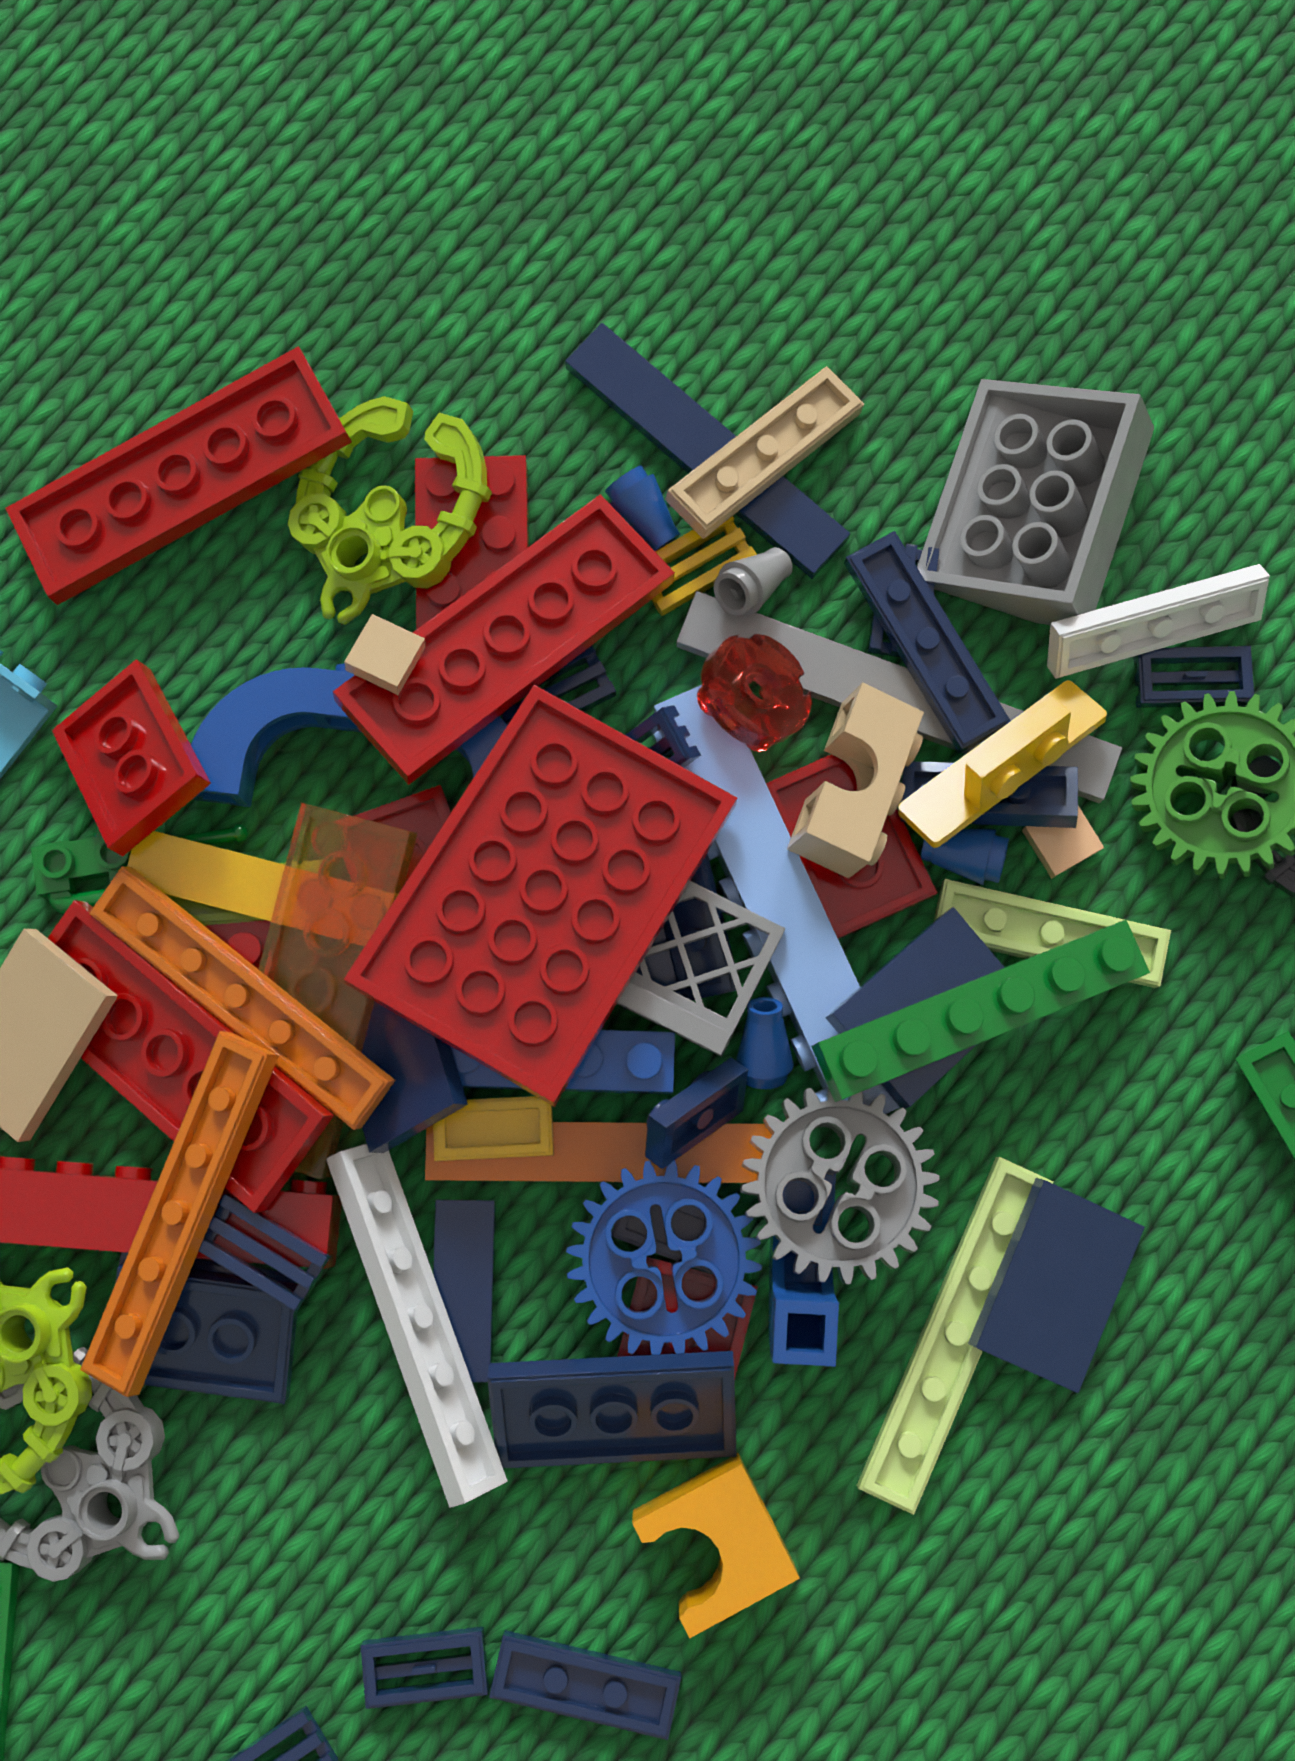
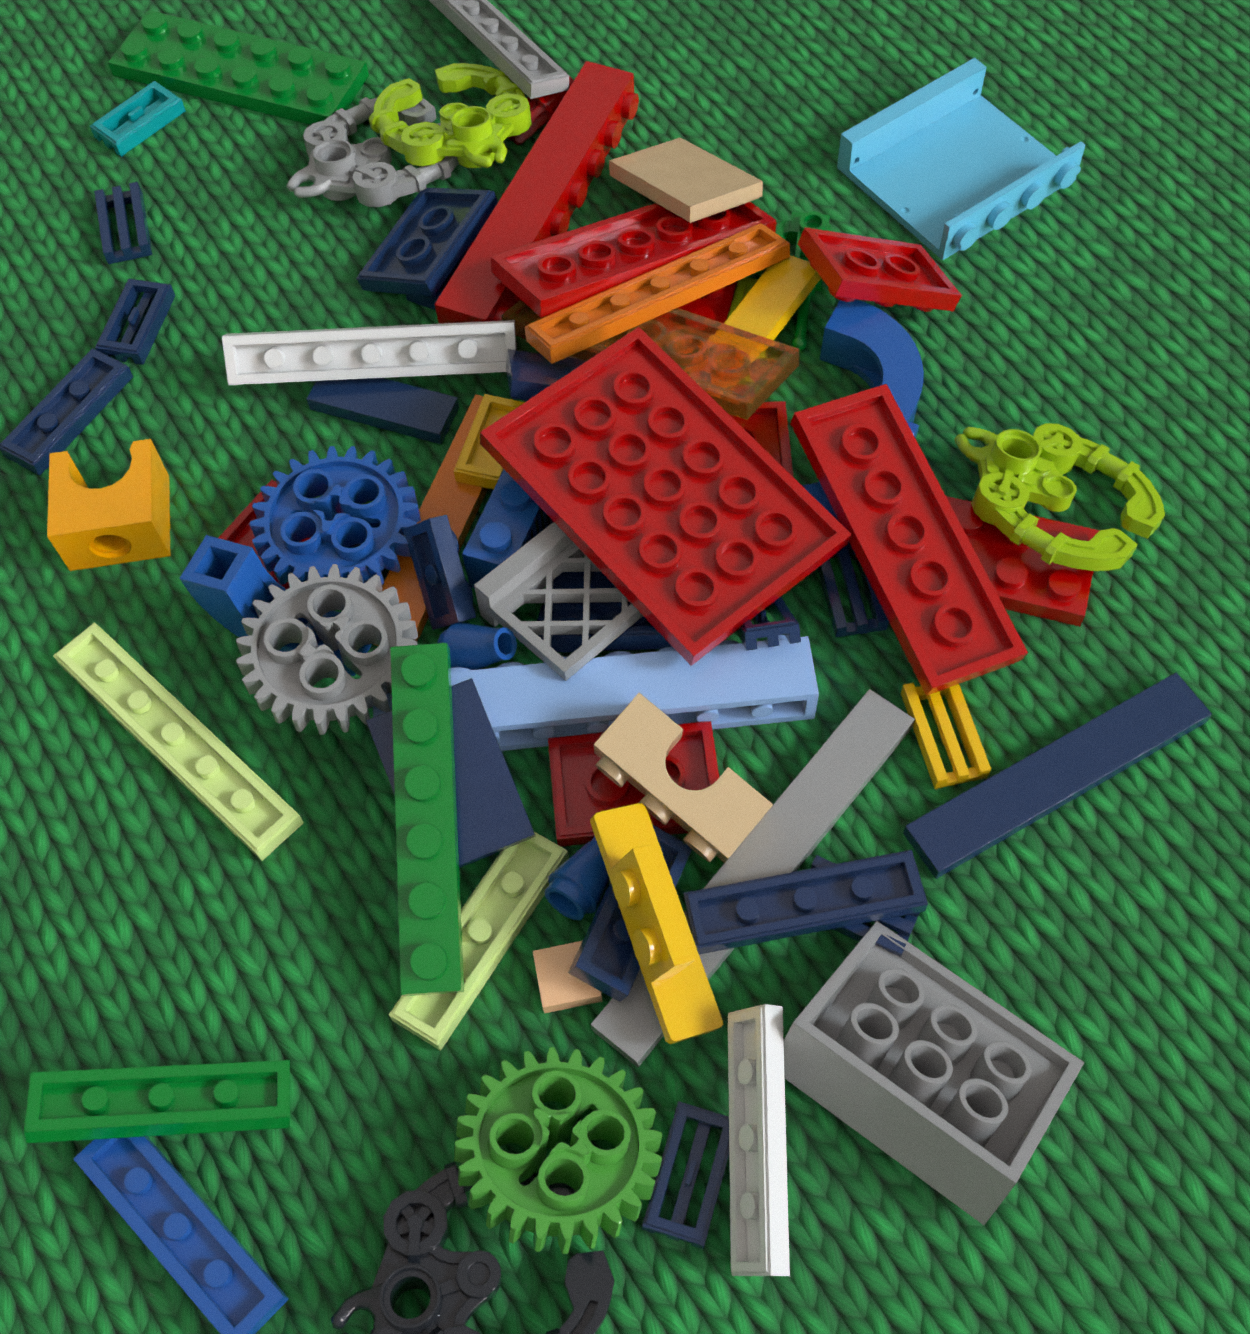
camera: 110 degrees right, 20 degrees down
(177, 476) = (1122, 362): red plate -> none
(179, 1213) = (516, 219): orange tile -> none
(254, 1276) = (458, 261): dark blue tile -> none
(385, 654) = (907, 423): tan tile -> none
(613, 1409) = (240, 462): dark blue tile -> none
(643, 507) = (1011, 695): blue cone -> none
(736, 709) = (828, 718): clear red plate -> none
(749, 582) = (910, 761): light grey cone -> none
(764, 452) = (1044, 816): tan tile -> none
(1056, 1285) = (169, 825): dark blue tile -> none

